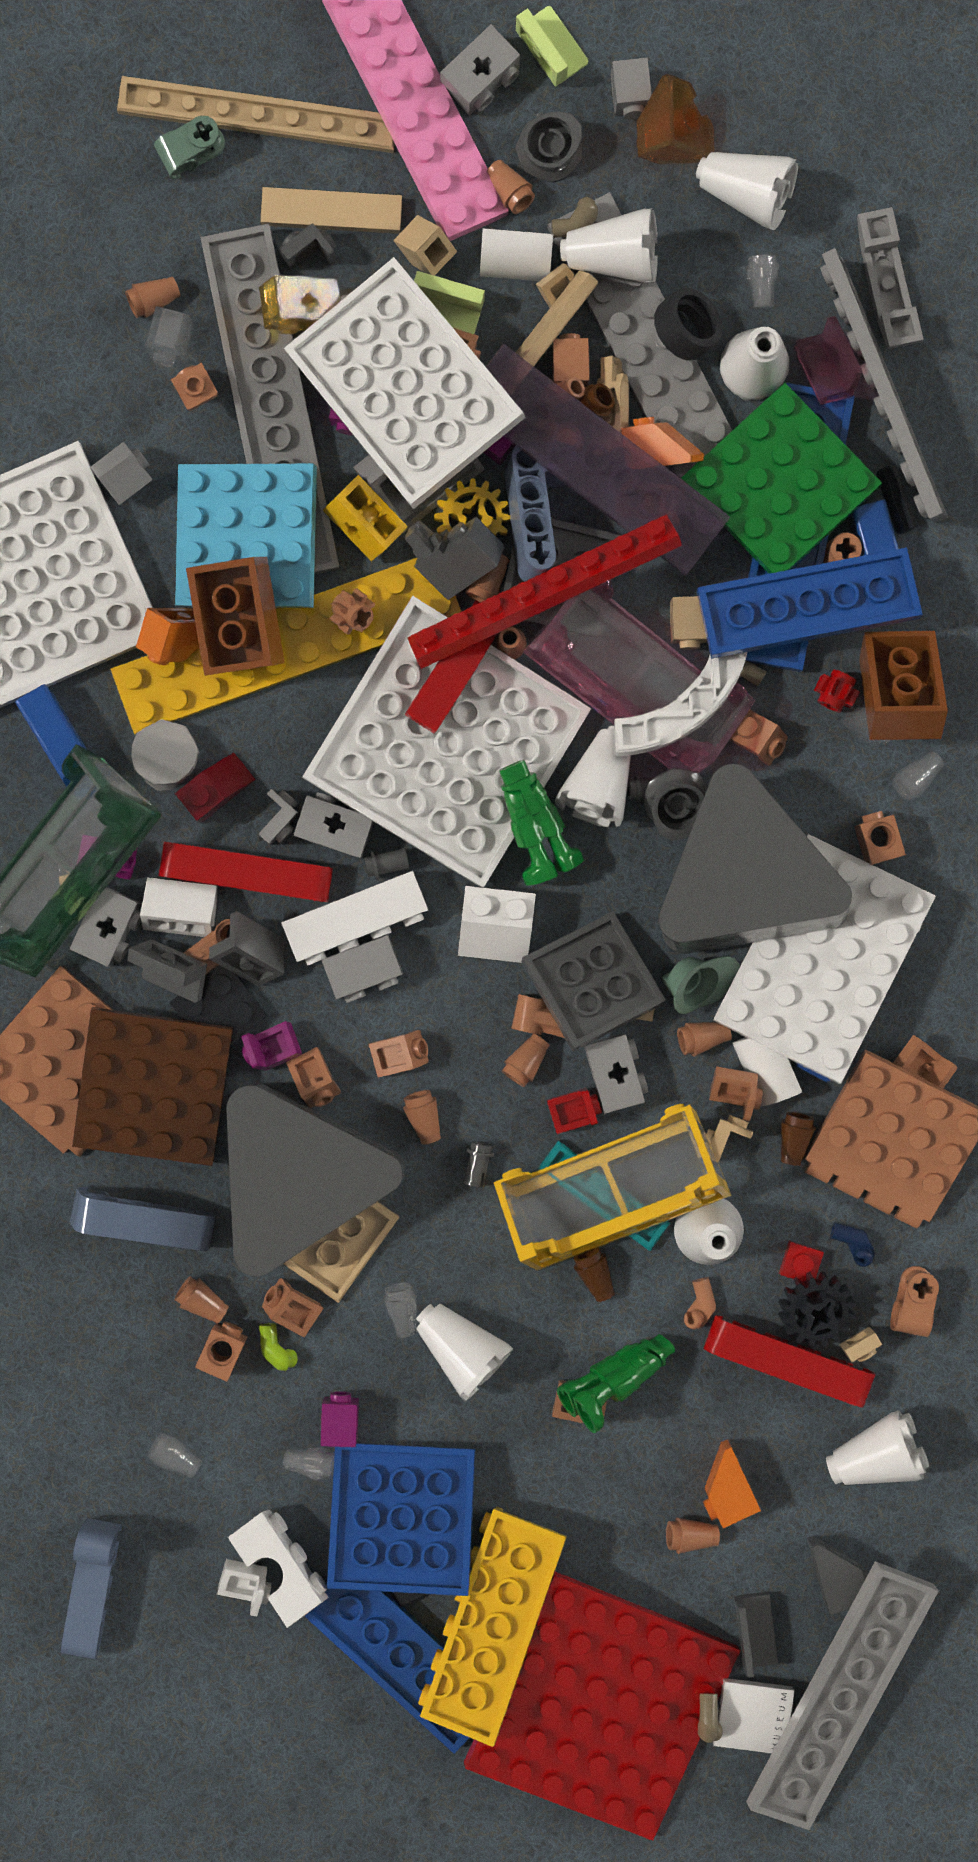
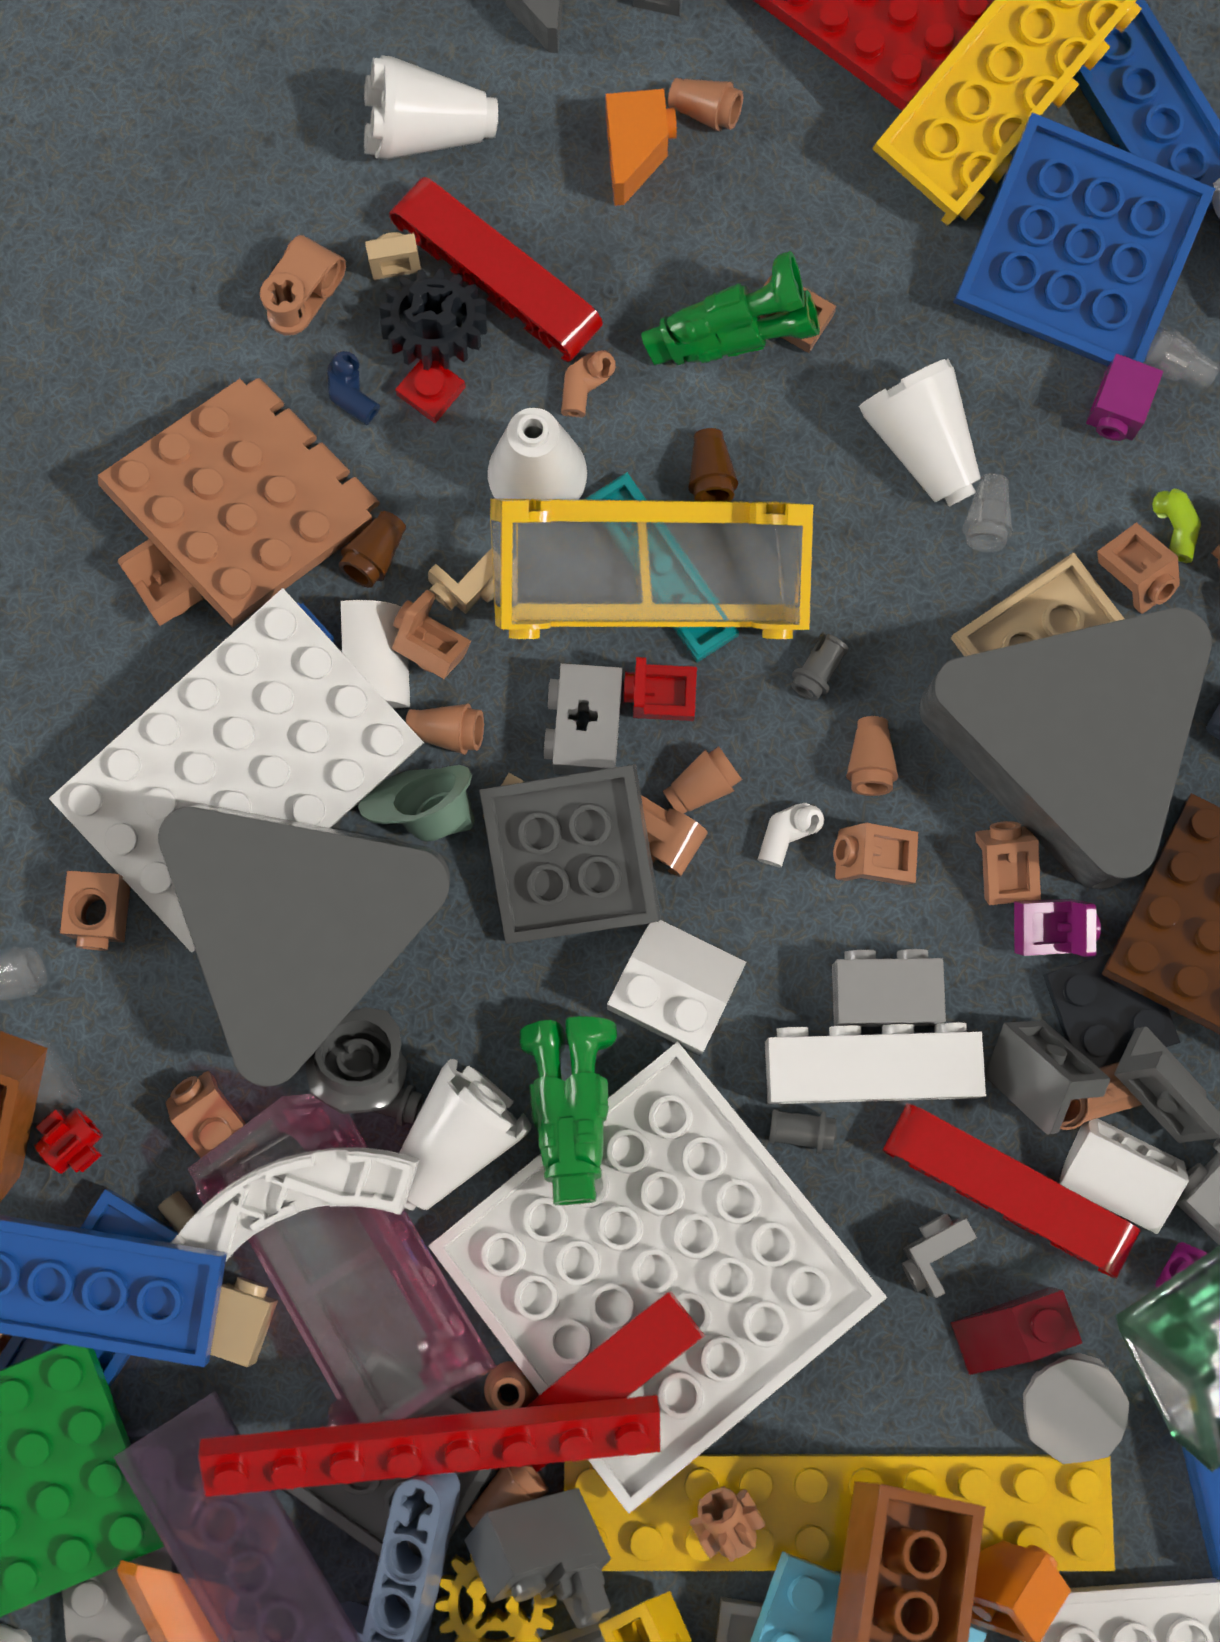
camera: 160 degrees left, 10 degrees down
(313, 825) = (891, 1216): light grey brick -> none
(462, 1051) = (787, 827): none -> white arm

